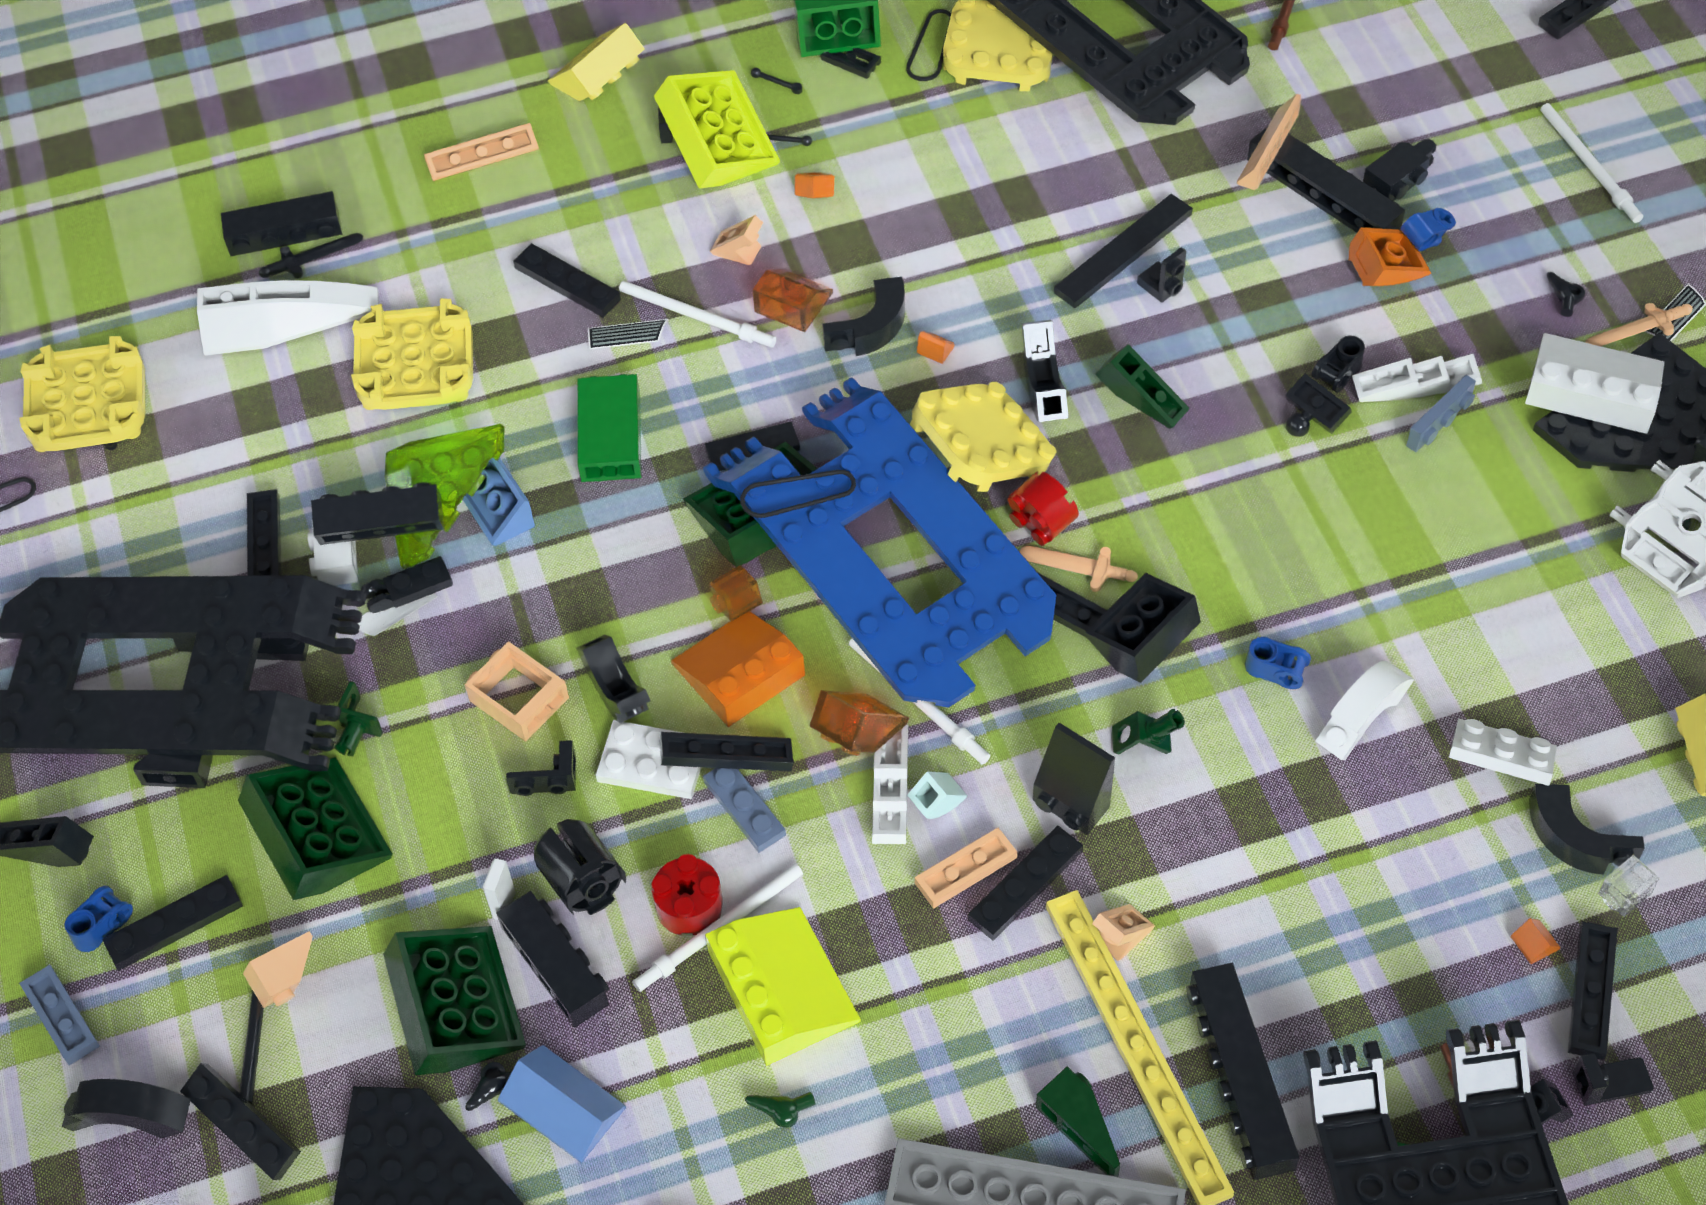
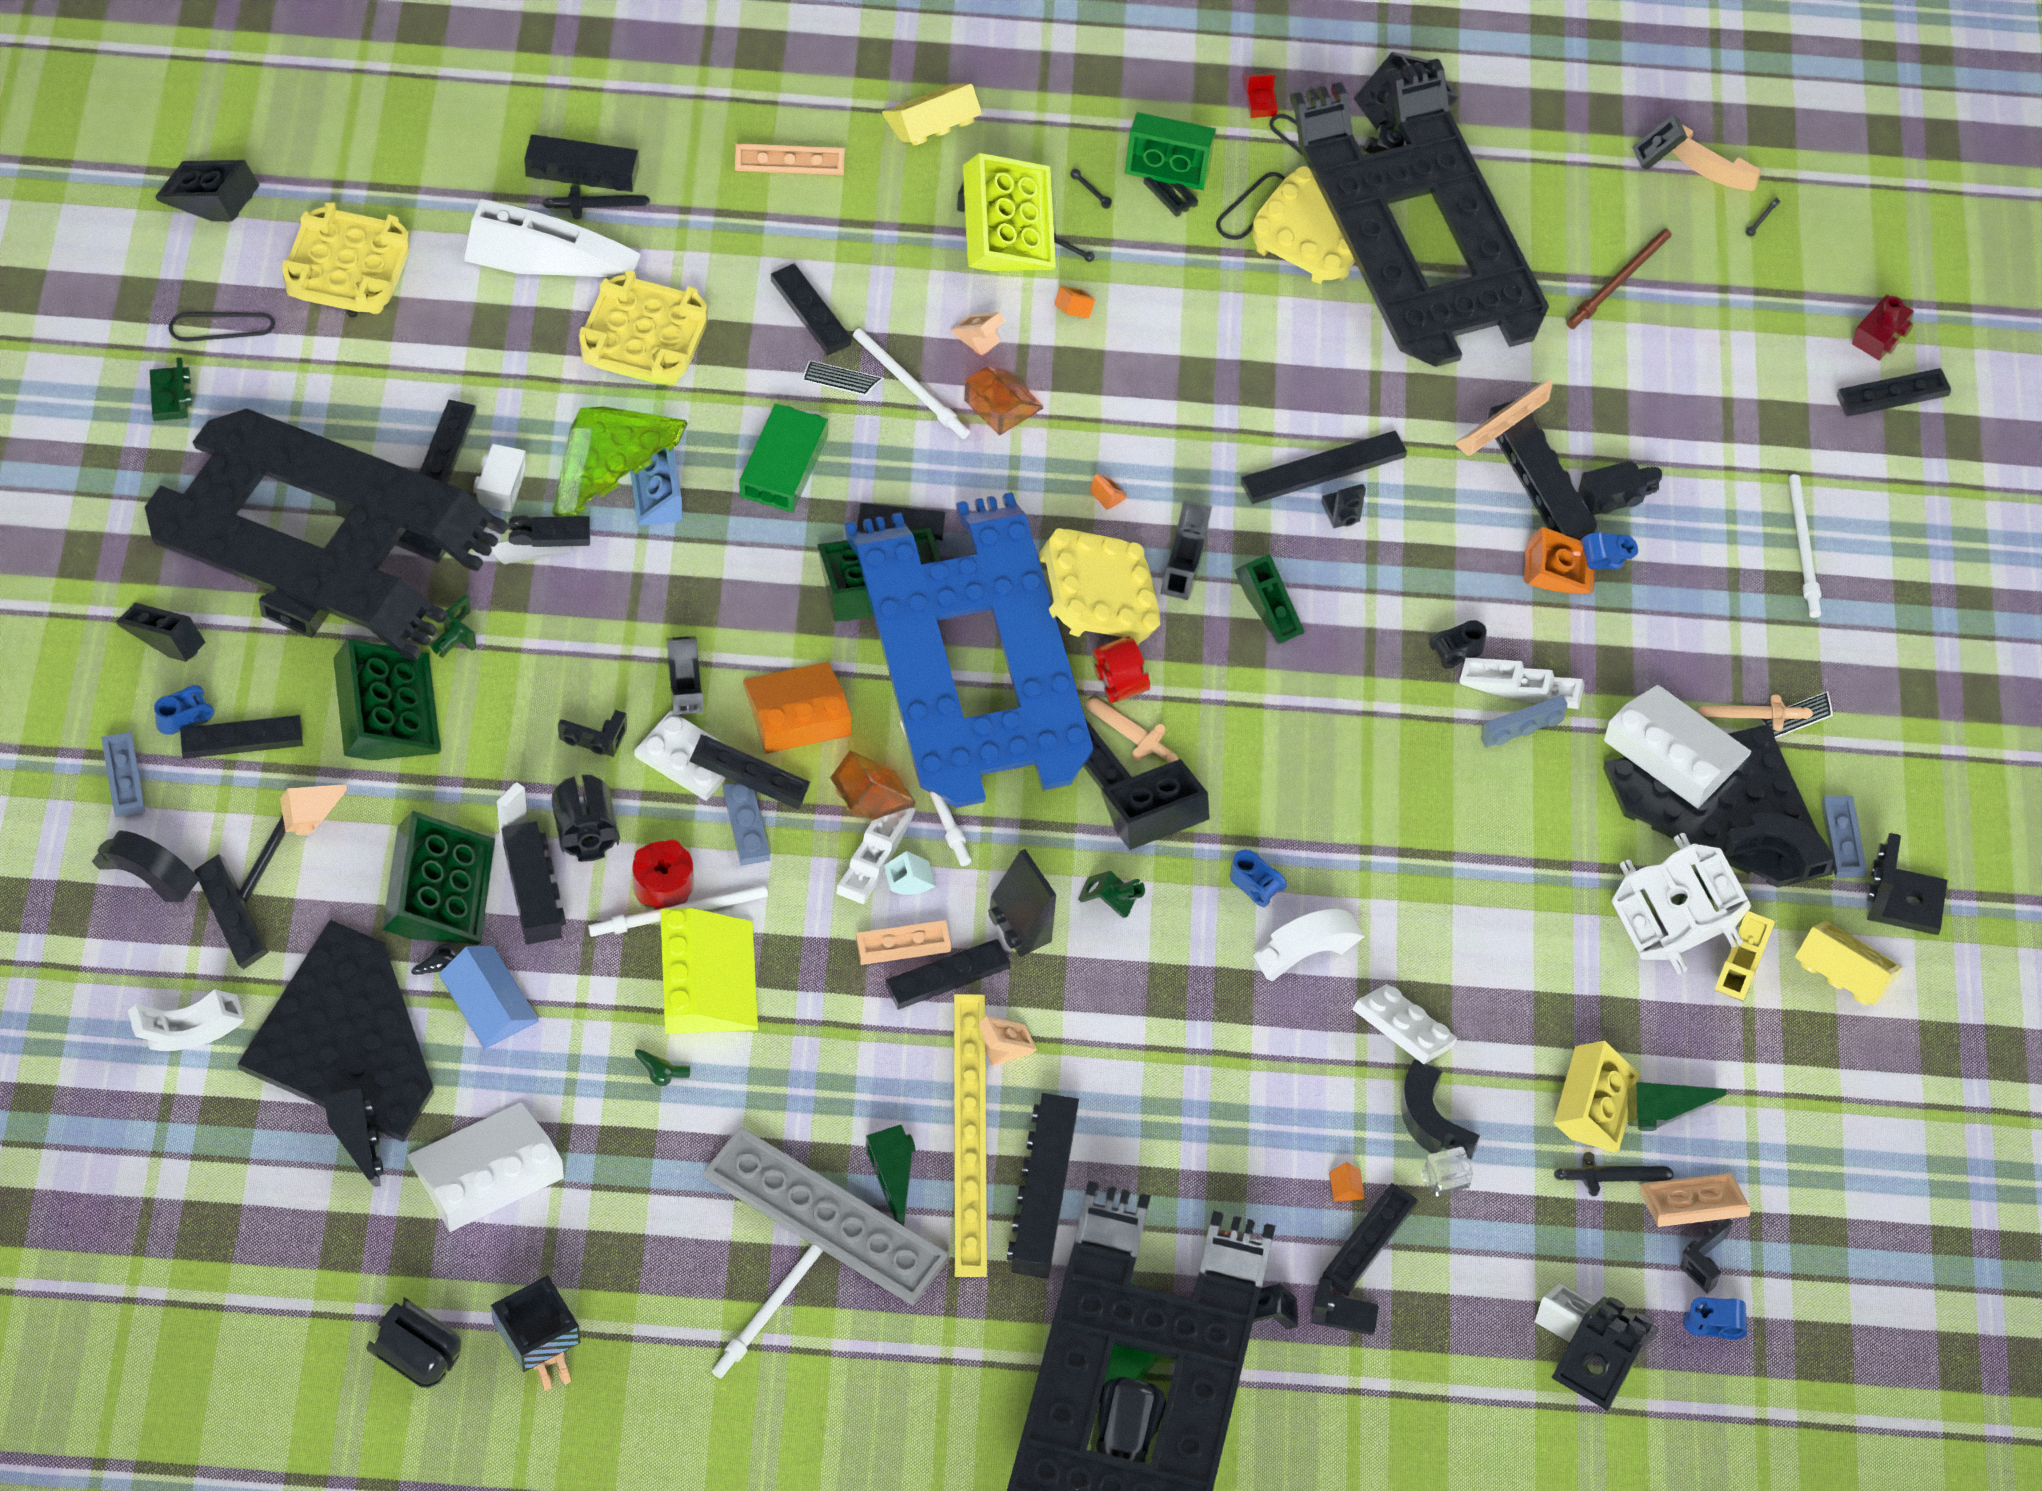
camera: 15 degrees right, 0 degrees up
(377, 513) = (548, 459): black brick -> none
(537, 710) = (610, 677): light nougat window -> none
(735, 593) = (822, 643): clear orange brick -> none
(796, 478) = (910, 588): black piece -> none
(874, 328) = (1063, 454): black arch -> none
(1316, 405) = (1417, 672): black plate -> none
(1566, 292) = (1708, 657): black animal -> none

